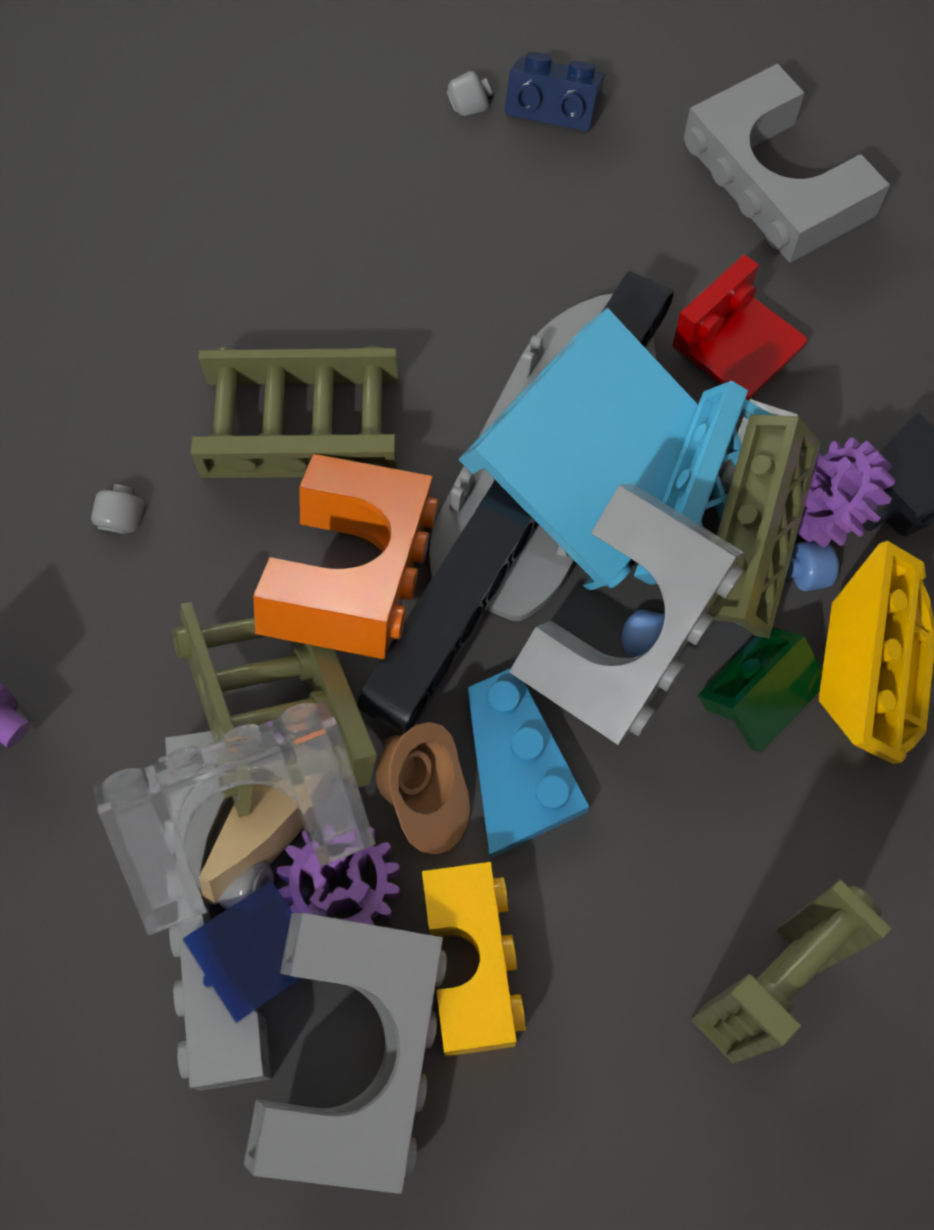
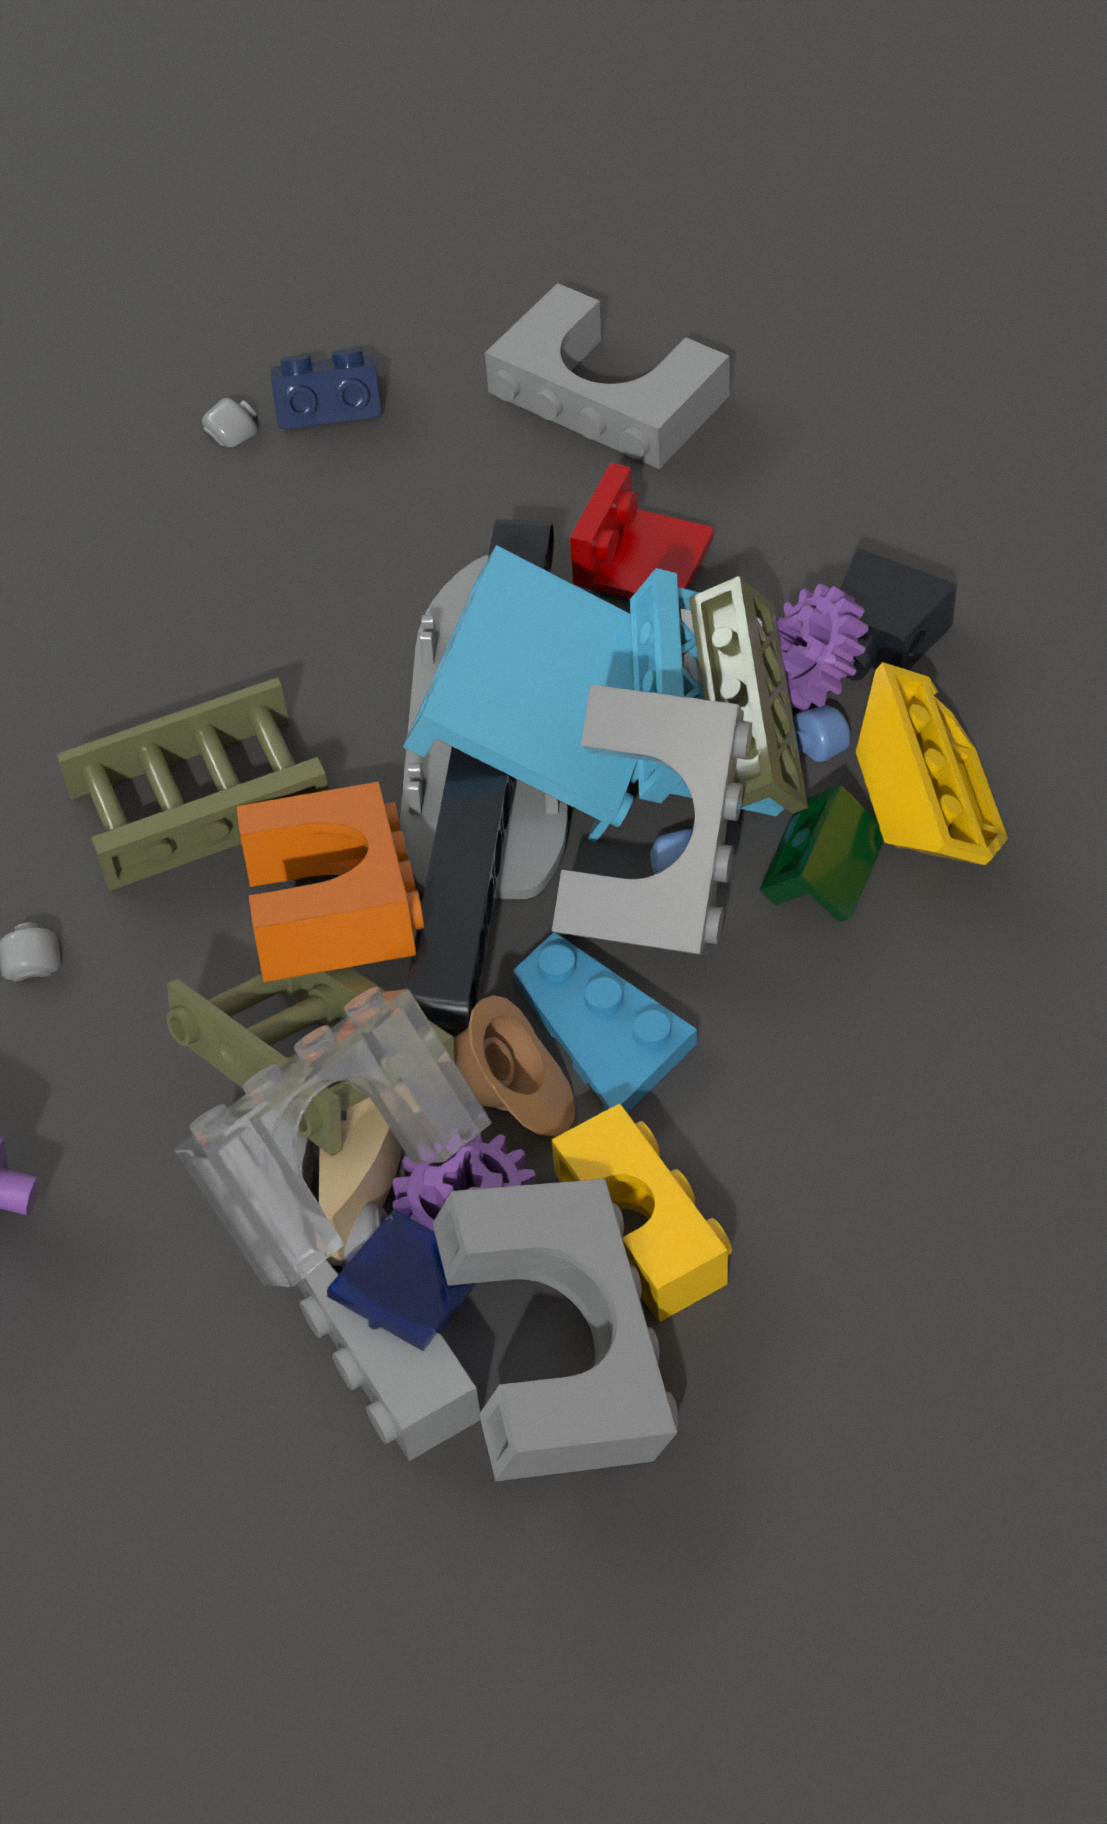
camera: 20 degrees left, 15 degrees down
(755, 1012) = (962, 1057): olive fence -> none

